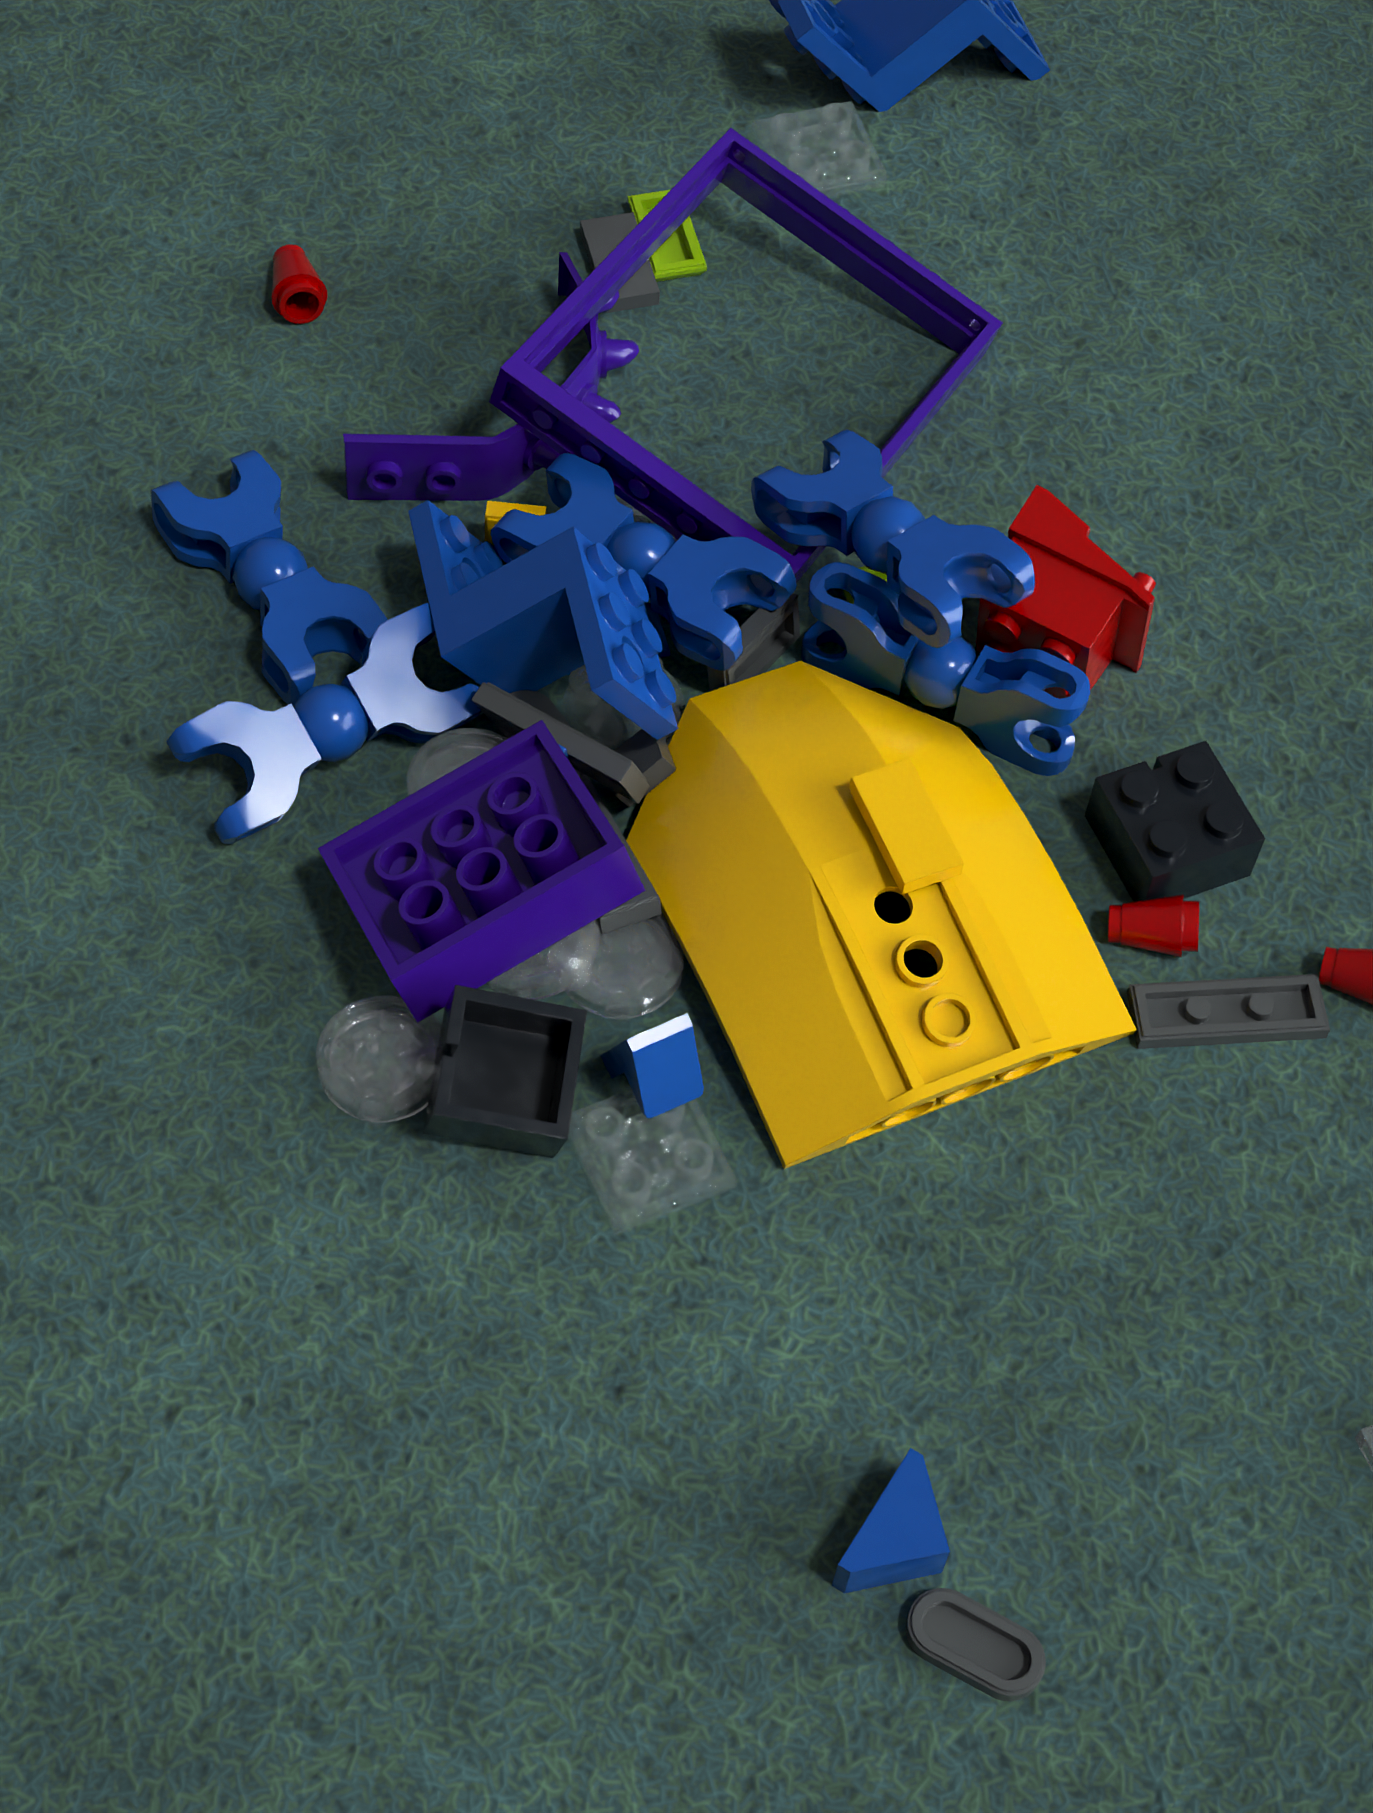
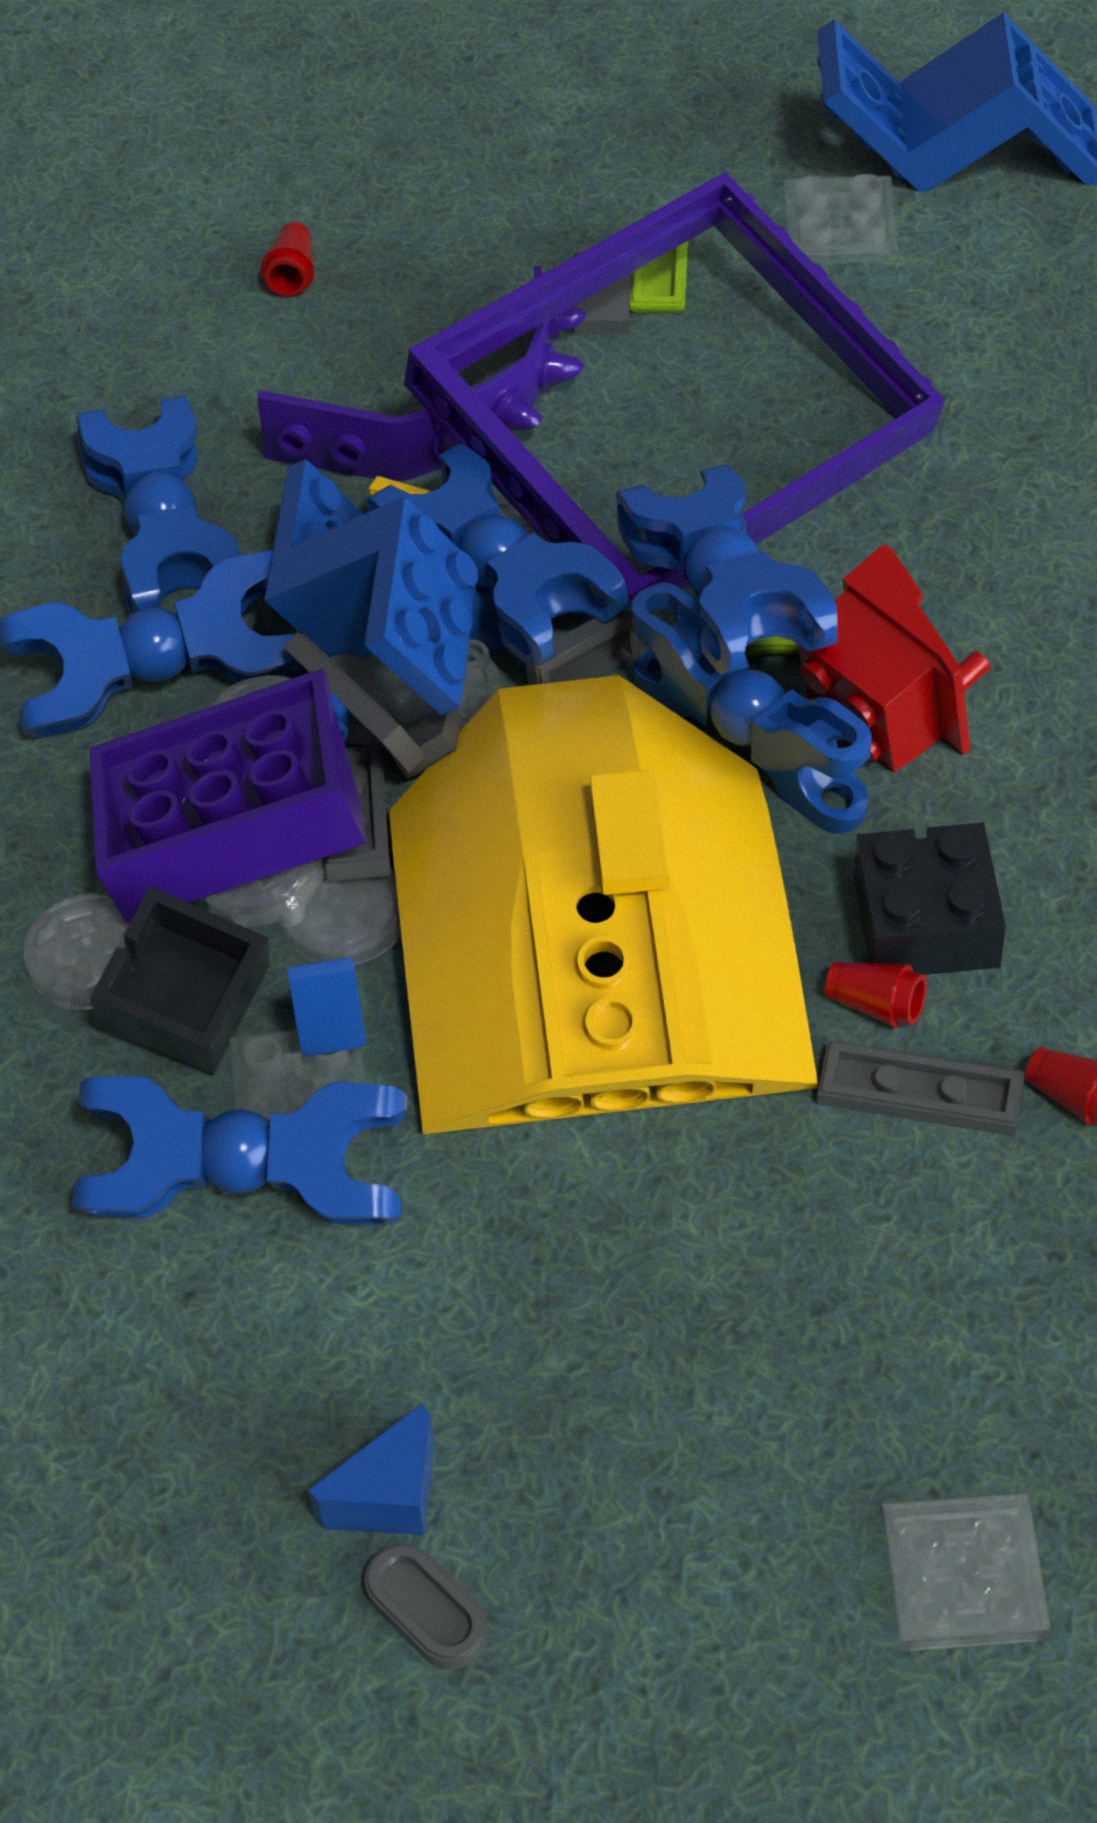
camera: 25 degrees right, 5 degrees down
(626, 1233) = (239, 1150): none -> blue piece

